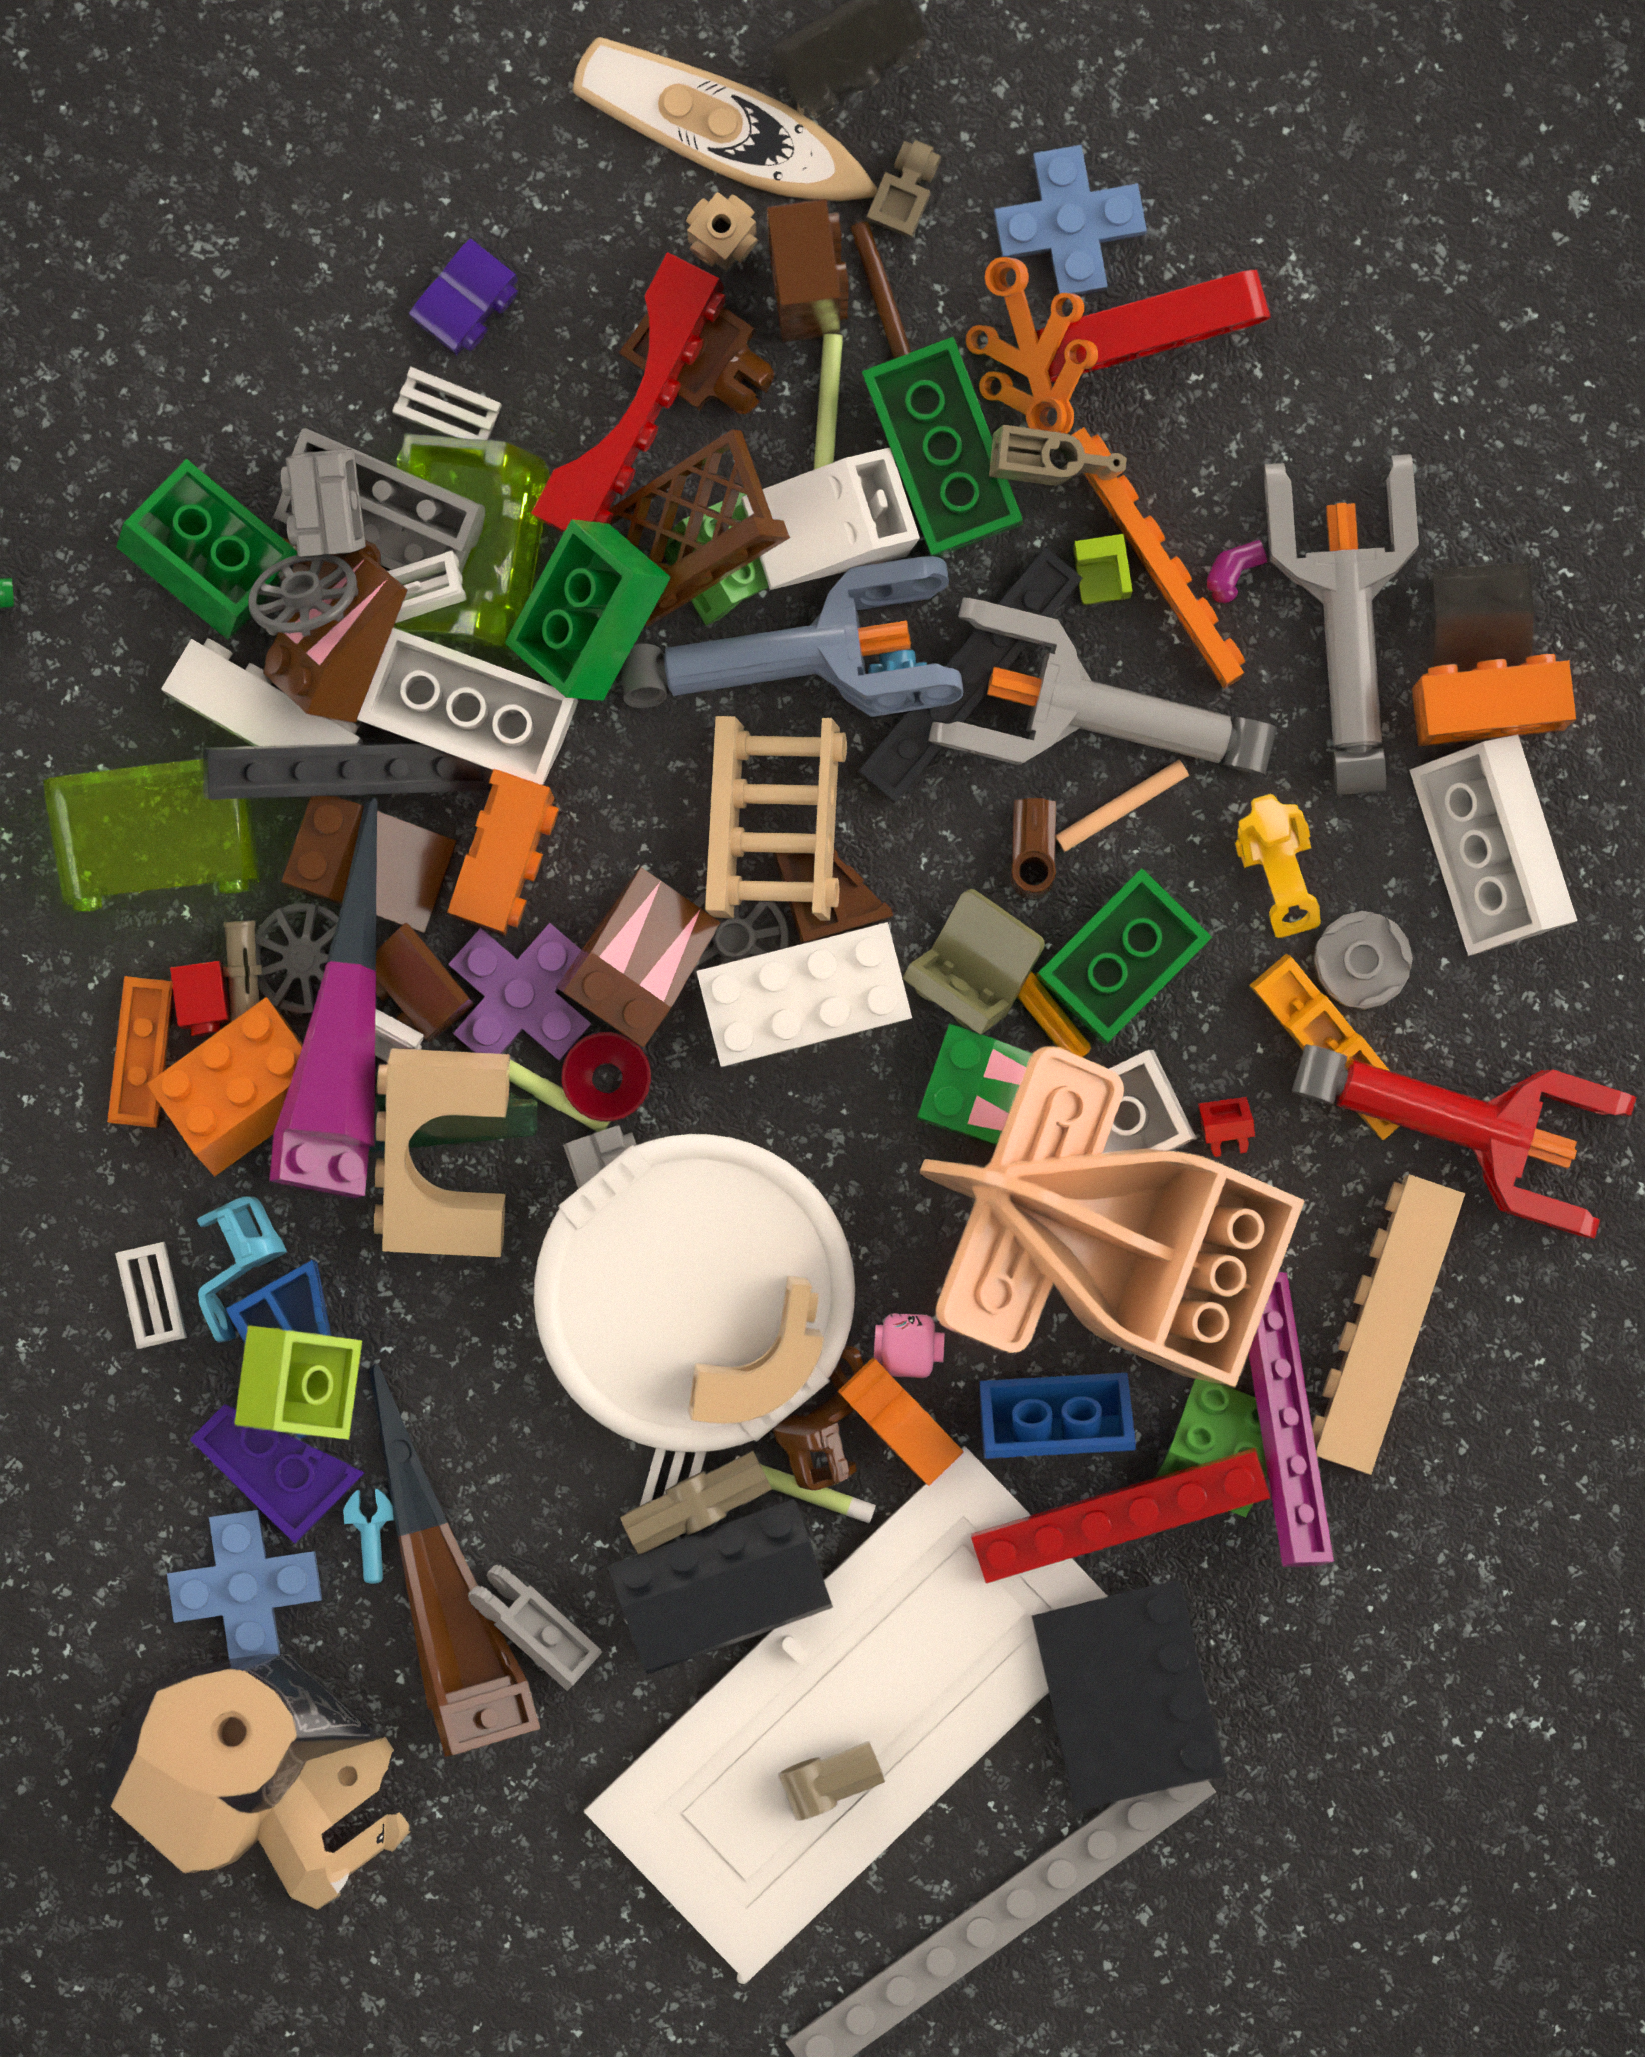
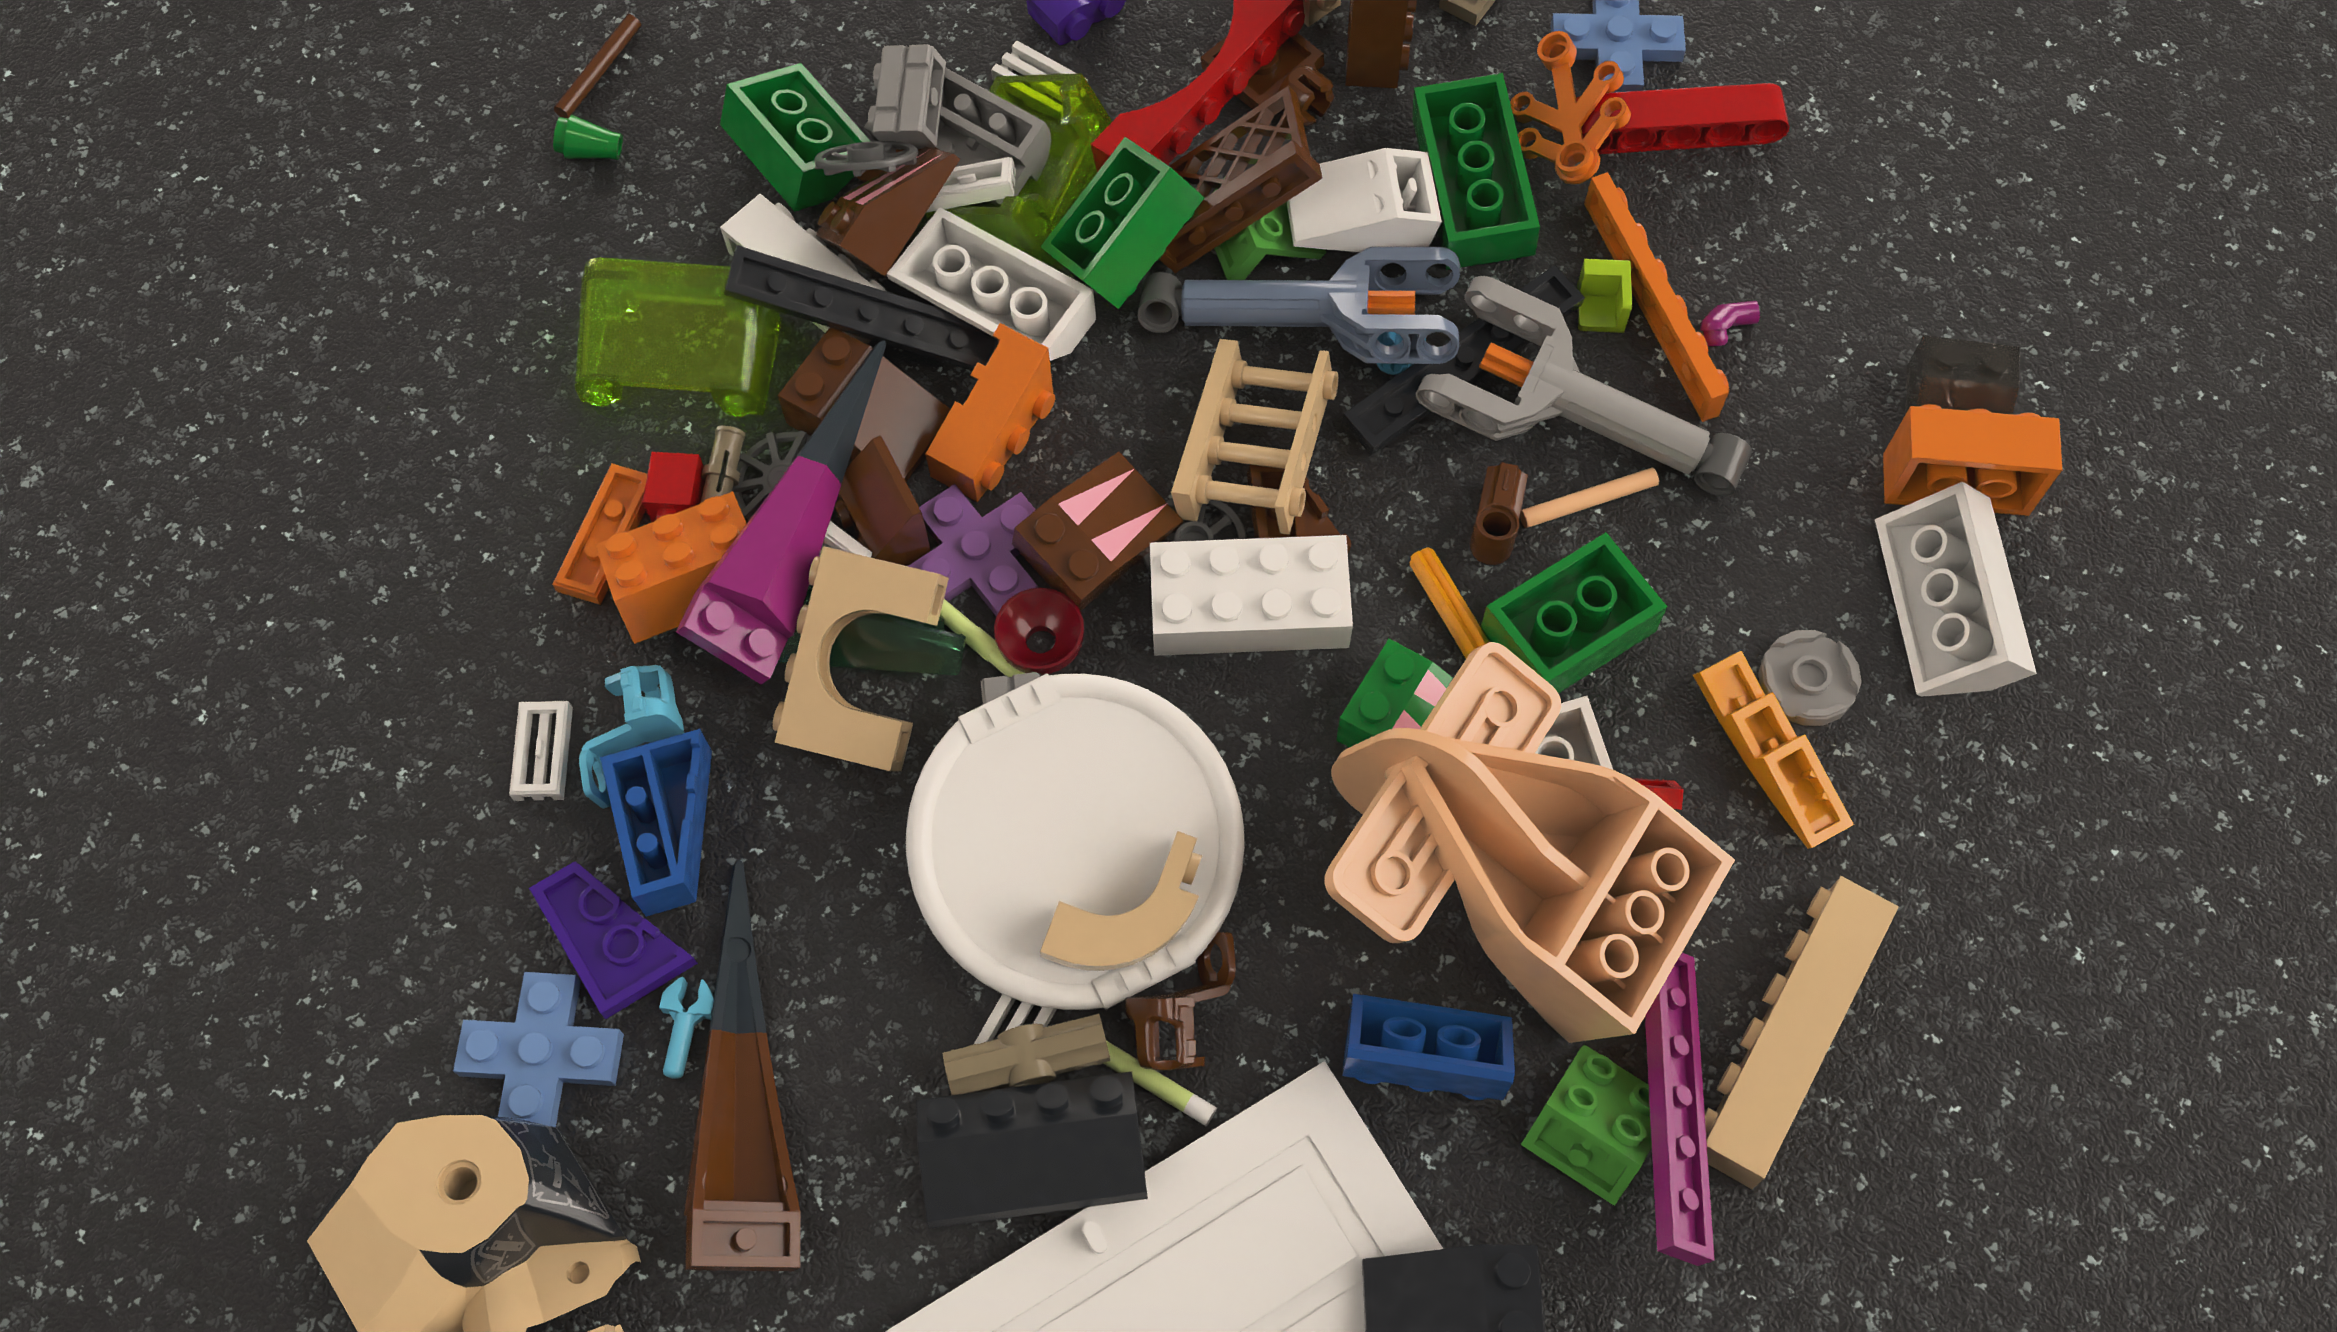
camera: 15 degrees right, 20 degrees down
(298, 1382) = (646, 834): lime slope -> none
(536, 1627) = (826, 1157): light grey hinge -> none
(828, 400) = (1381, 115): yellowish green bar -> none
(880, 289) = (1438, 43): reddish brown bar -> none
(900, 1422) = (1261, 1019): orange piece -> none
(908, 1345) = (1284, 947): bright pink head -> none
(977, 962) = (1428, 593): olive bracket -> none
(1025, 453) = (1577, 174): dark tan piece -> none
(1120, 1515) = (1482, 1163): red plate -> none
(1272, 838) = (1737, 556): yellow piece -> none
(1346, 584) = (1834, 346): light grey piece -> none
(1496, 1130) = (1938, 854): red piece -> none

